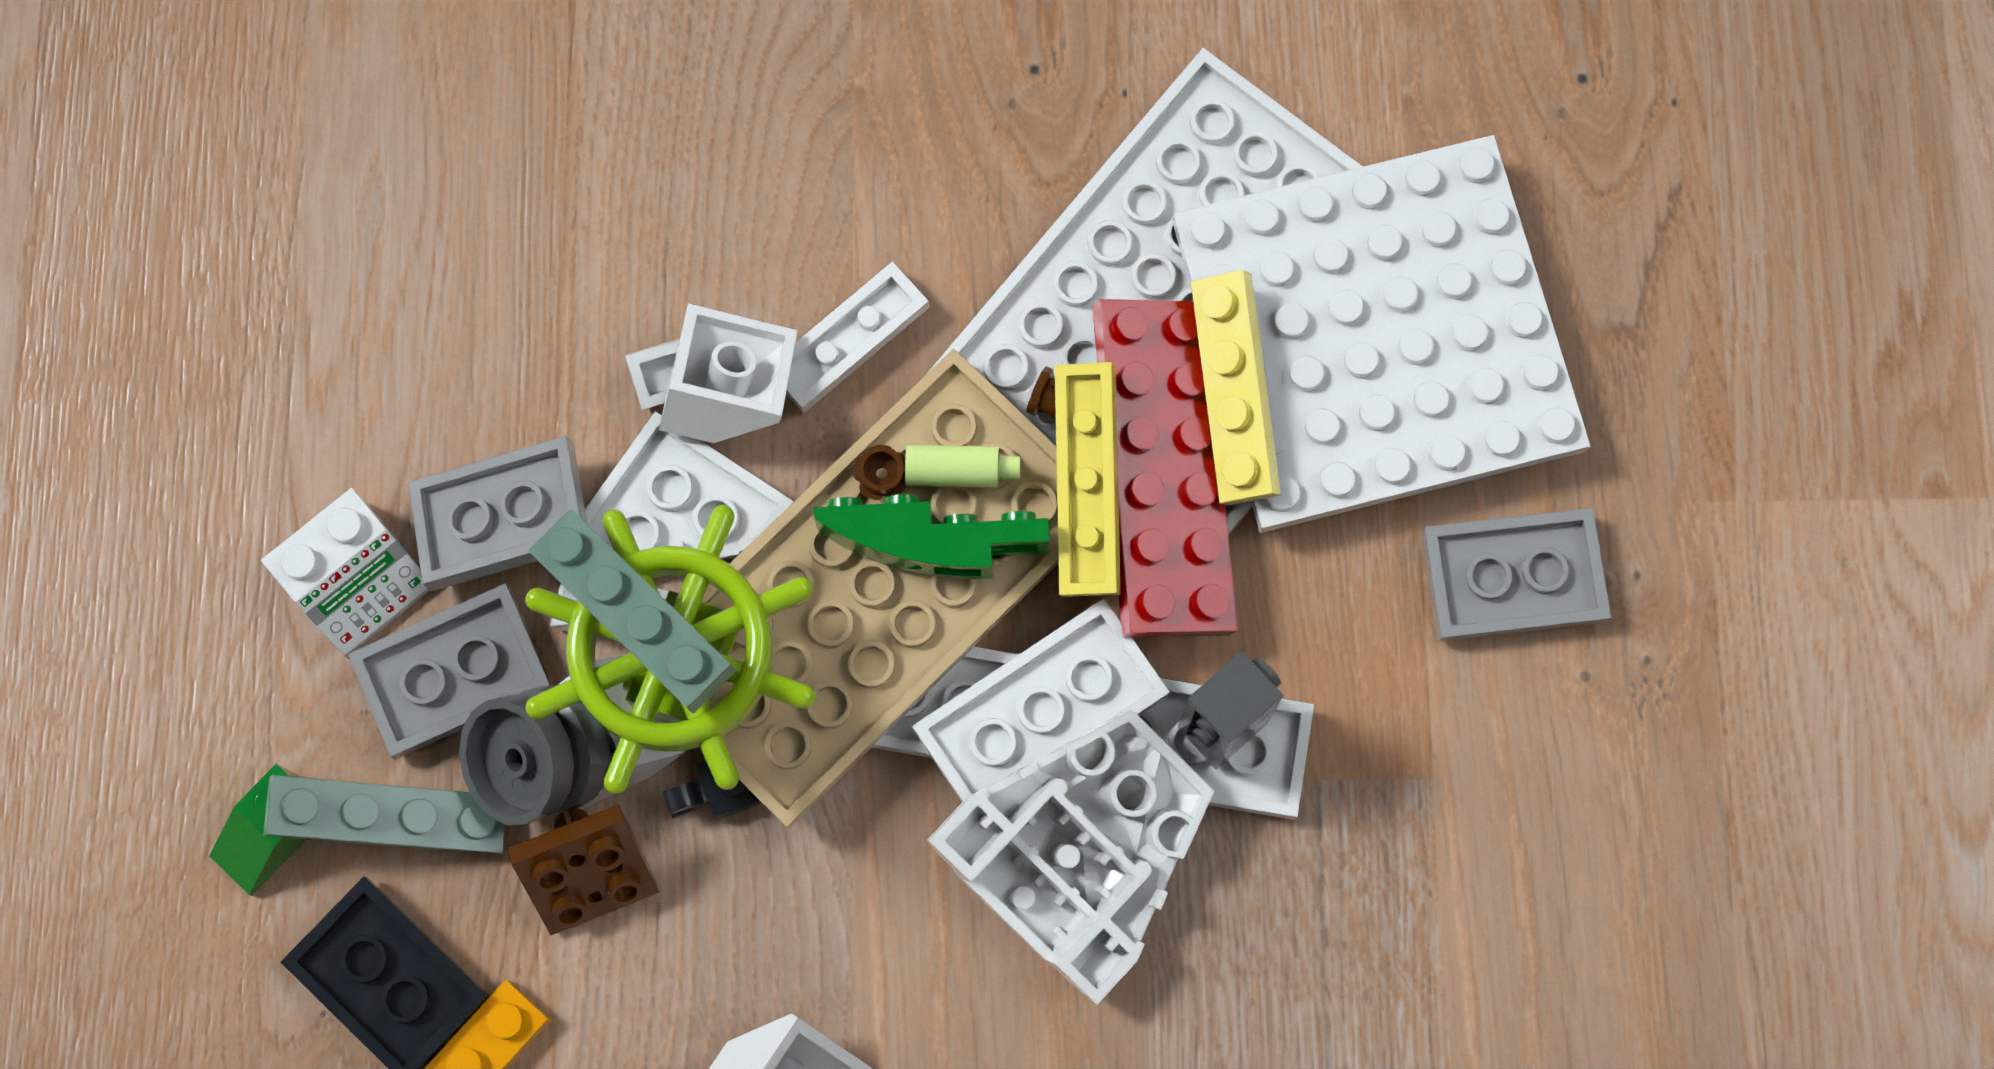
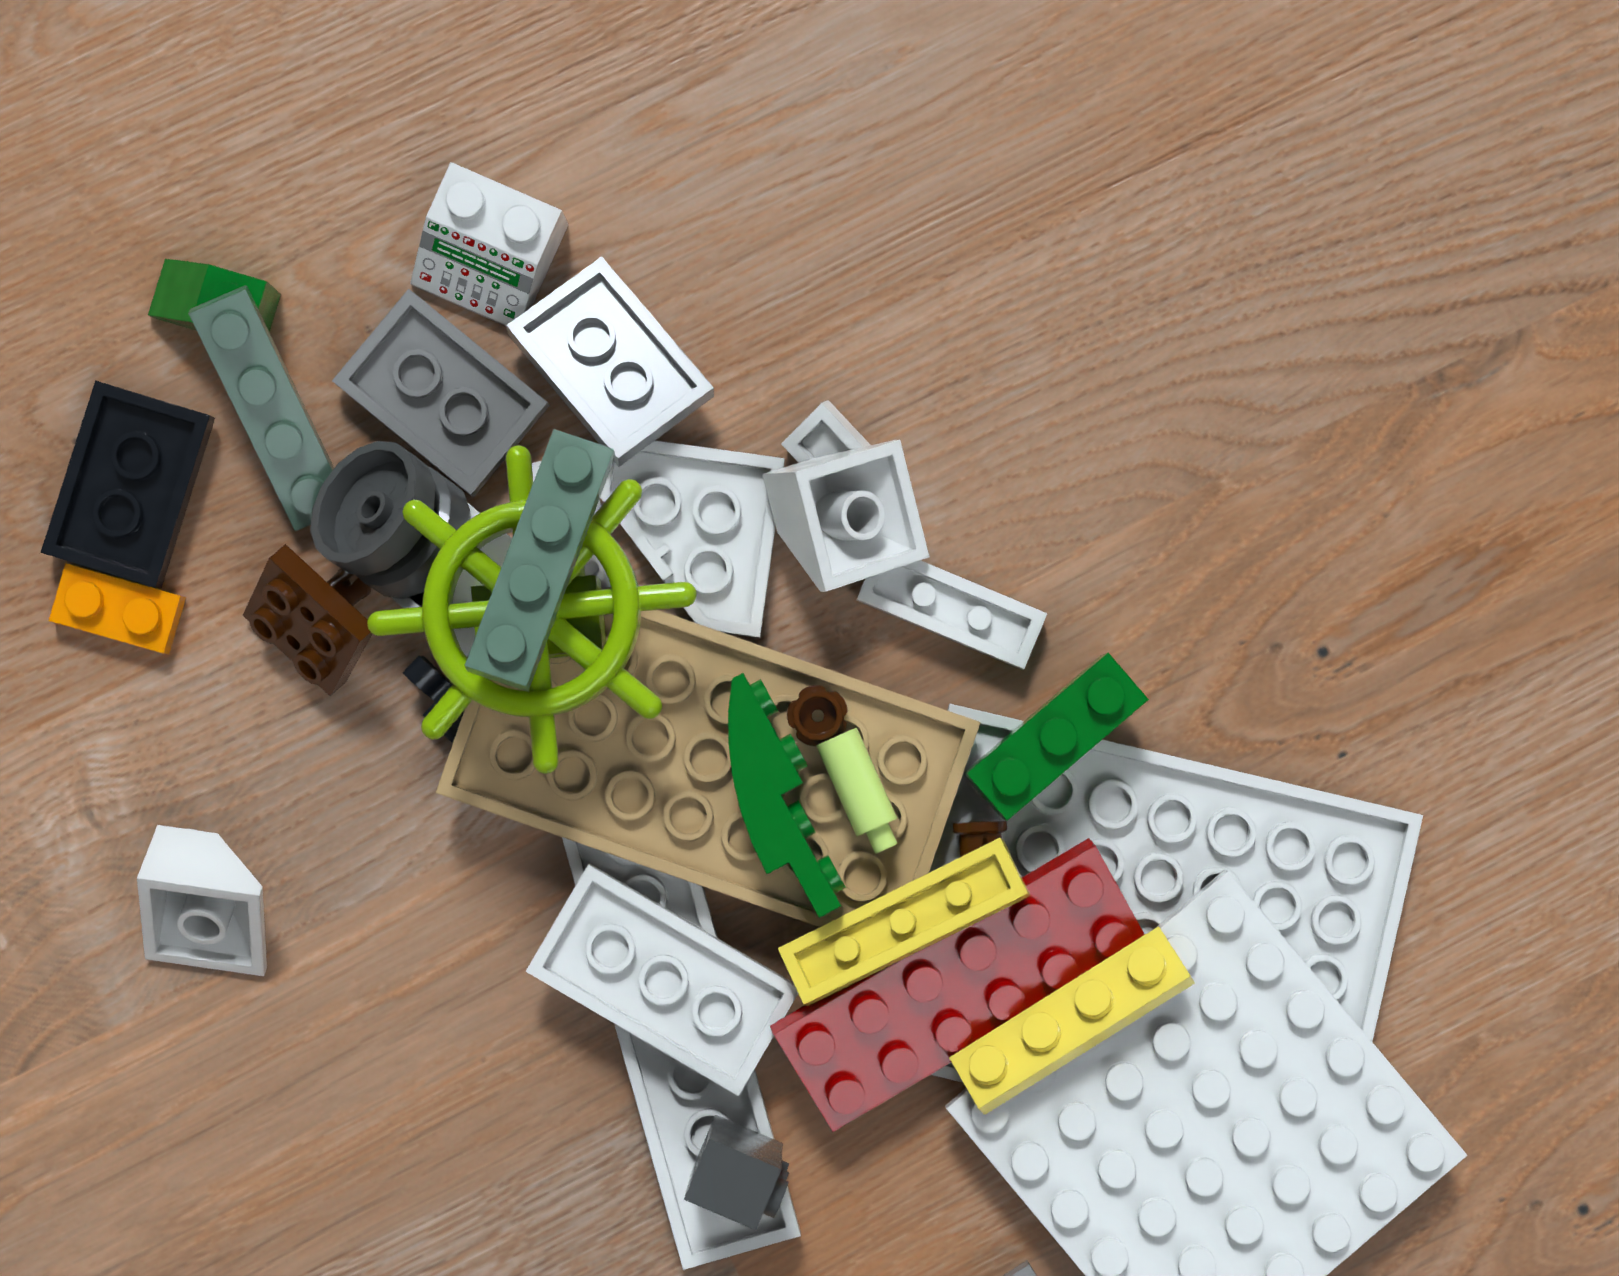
camera: 65 degrees right, 10 degrees up
(995, 294) = (1055, 736): none -> green brick
(1080, 847) = (549, 1083): white wedge -> none

